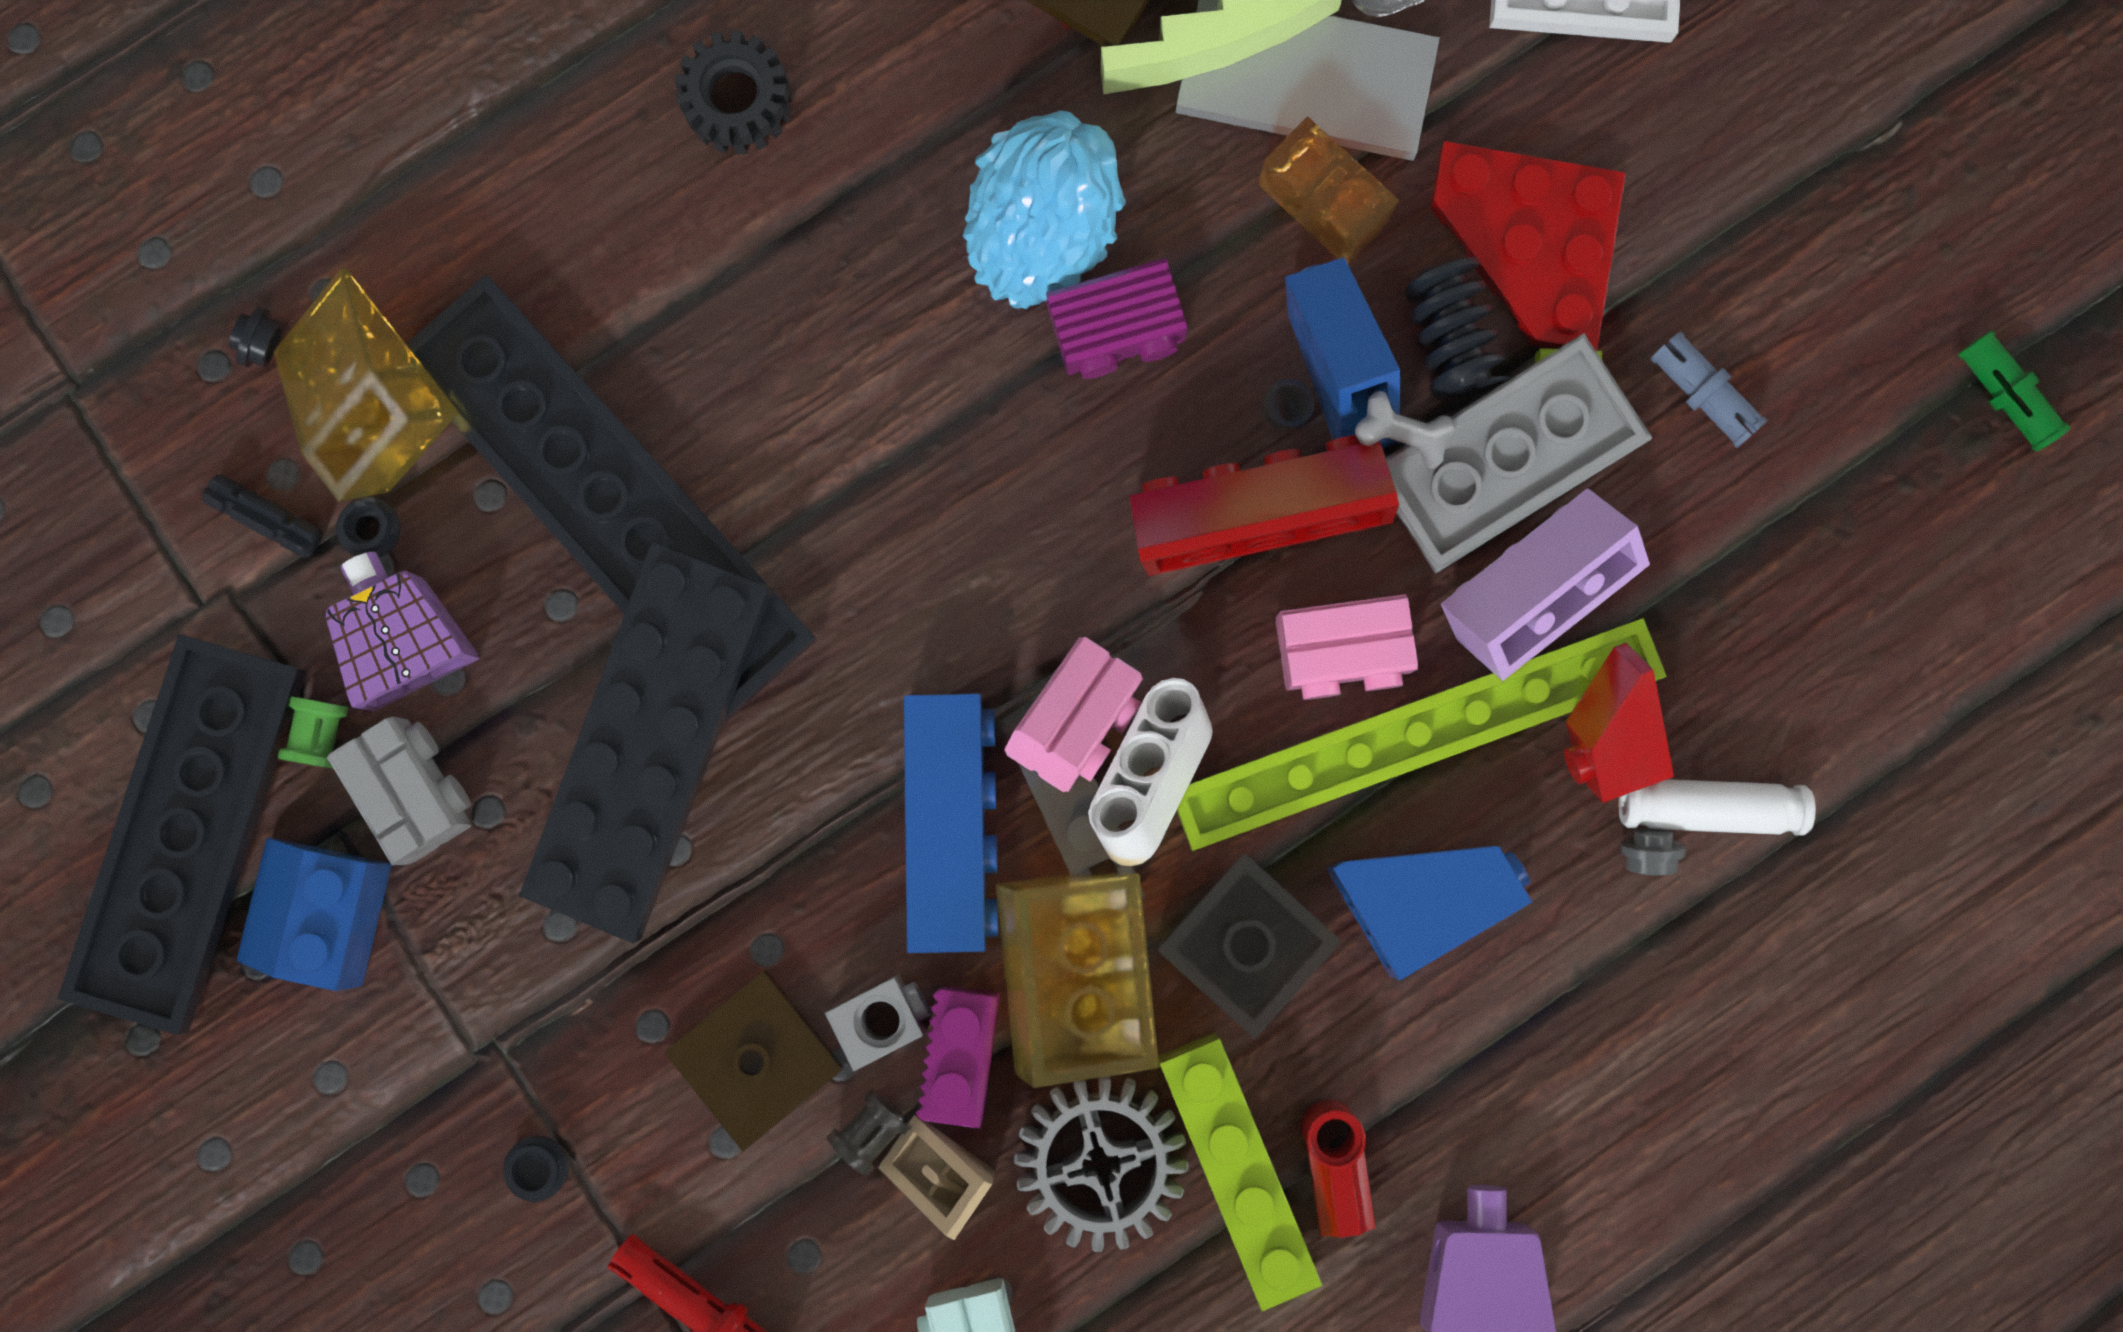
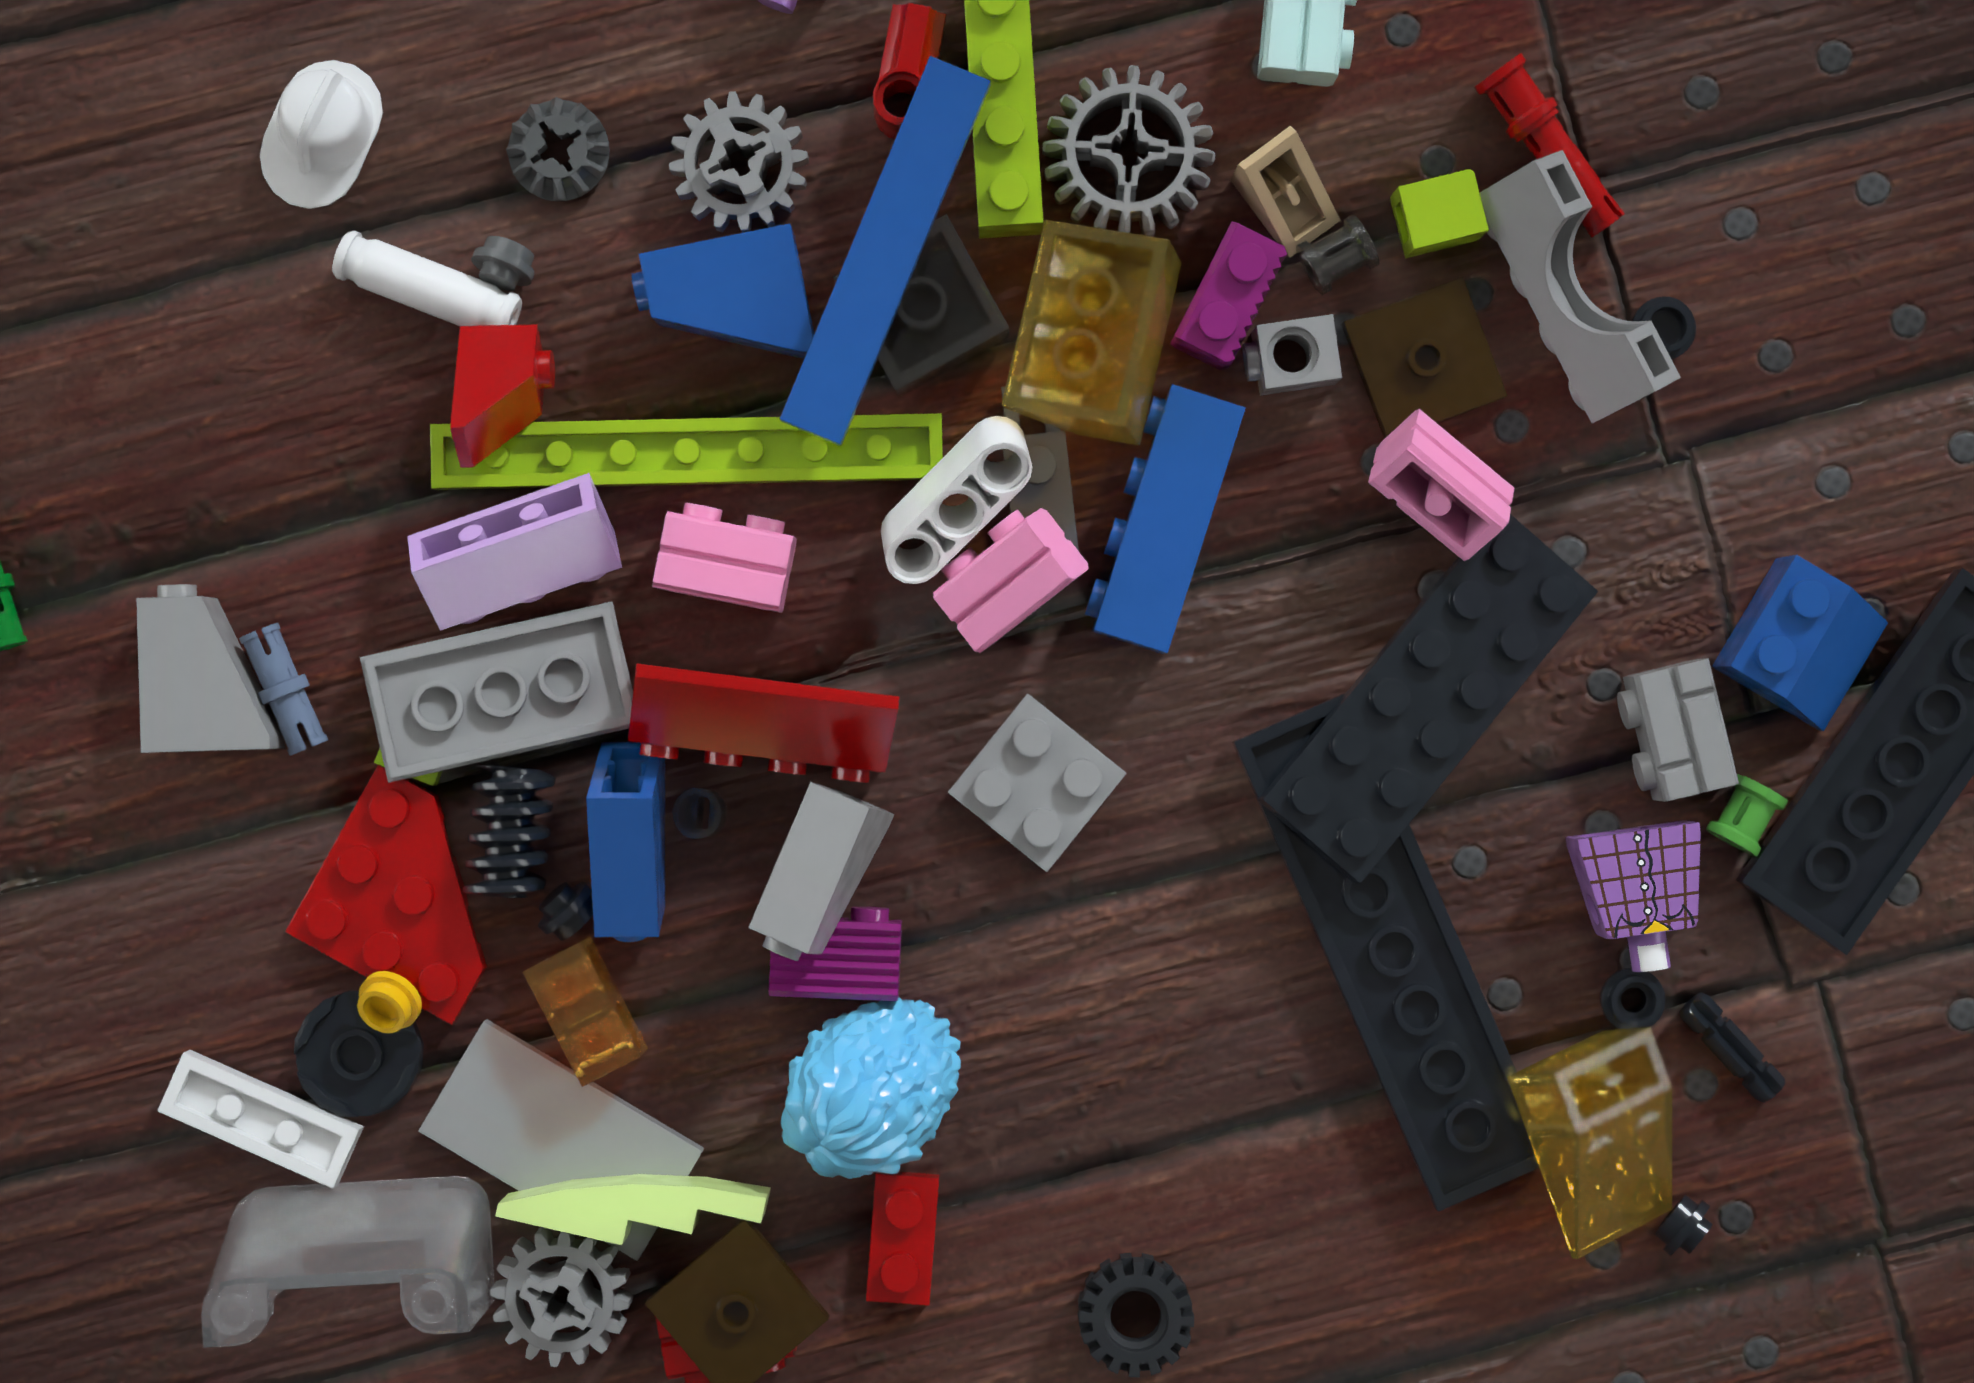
camera: 165 degrees left, 5 degrees up
(581, 1120) = (1535, 224): none -> light grey arch
(696, 943) = (1442, 485): none -> bright pink brick
(785, 1206) = (1439, 213): none -> lime panel
(966, 89) = (902, 1238): none -> red plate
(985, 540) = (1037, 782): none -> light grey plate
(1159, 383) = (818, 870): none -> light grey slope
(1301, 984) = (885, 250): none -> blue tile
(1378, 275) = (566, 910): none -> black plate
(1385, 423) = (616, 754): light grey piece -> none
(1487, 1003) = (762, 150): none -> light grey gear
(1510, 136) = (388, 1002): none -> yellow plate
(1518, 90) = (350, 1064): none -> black tile
(1611, 983) = (588, 152): none -> dark grey gear
(1793, 369) = (196, 678): none -> light grey slope
(1867, 918) = (320, 134): none -> white piece

